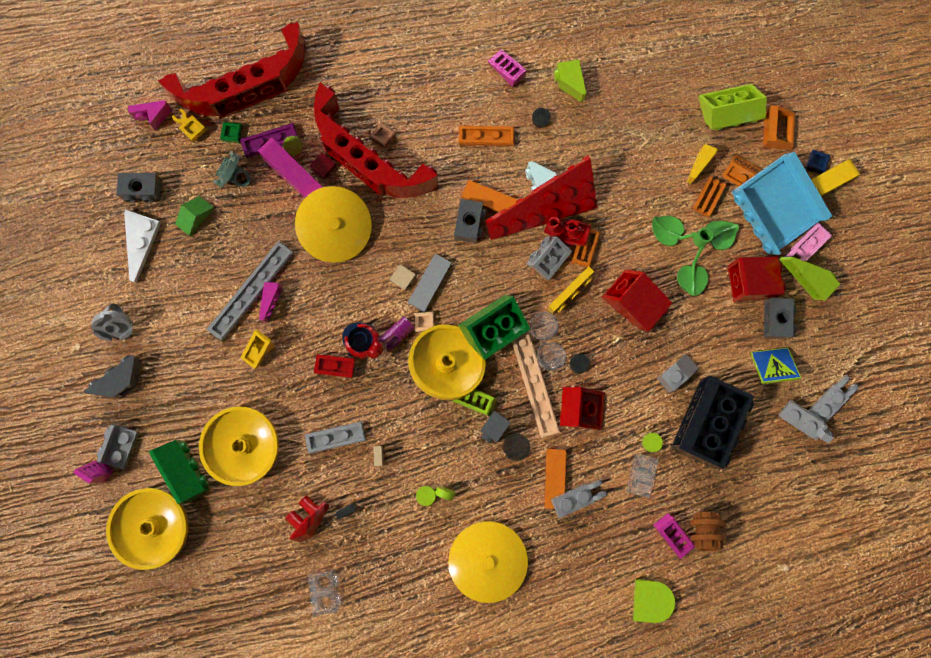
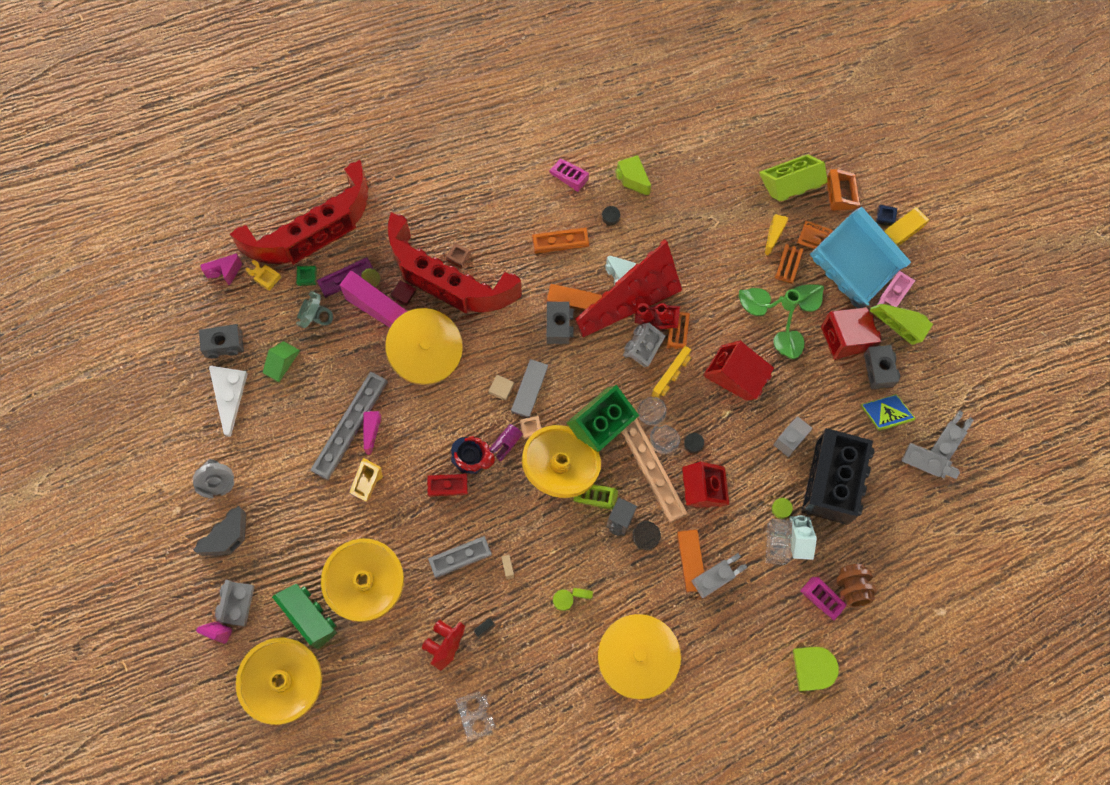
camera: 10 degrees left, 10 degrees down
(666, 475) = (803, 538): none -> light aqua slope

